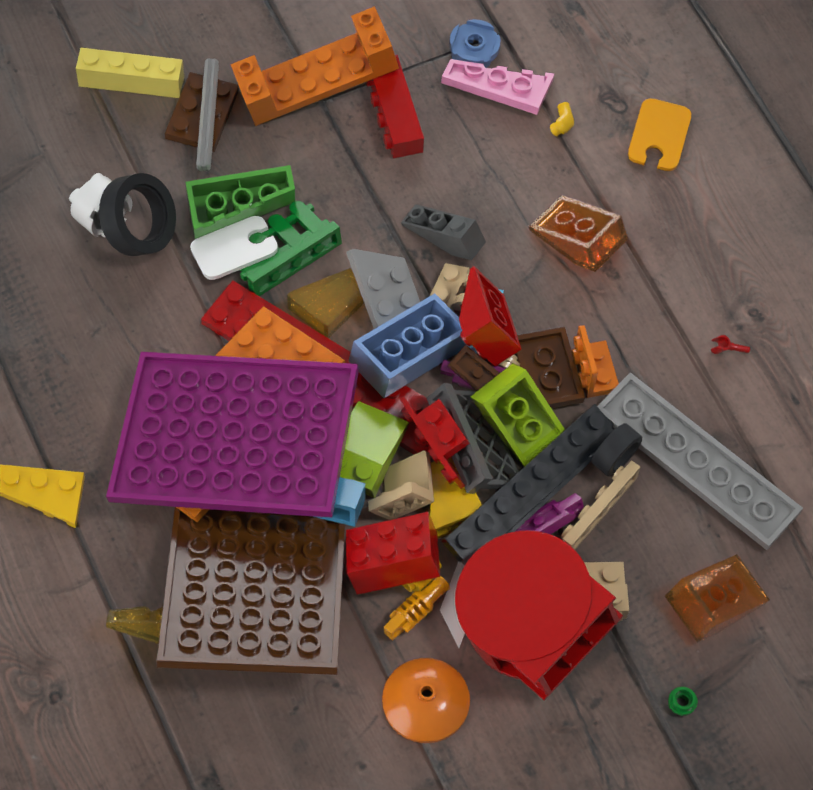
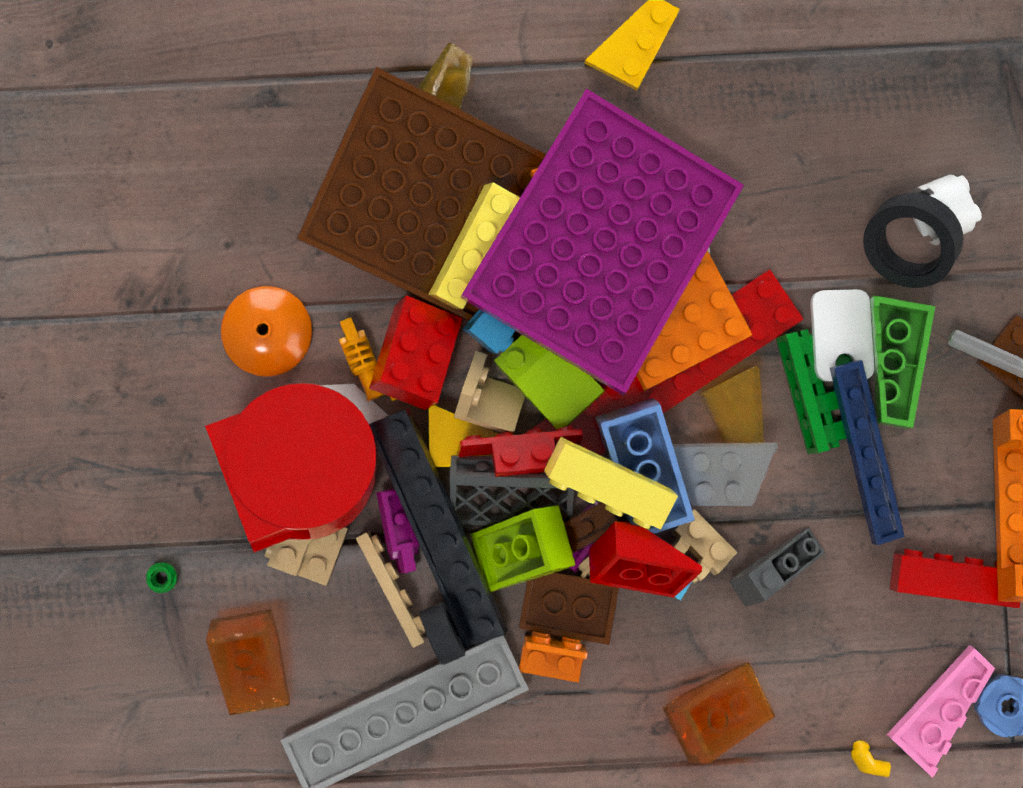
camera: 110 degrees right, 25 degrees up
(280, 534) = (473, 243): none -> light yellow brick
(321, 196) = (867, 452): none -> dark blue plate
(436, 353) = (609, 483): none -> light yellow brick

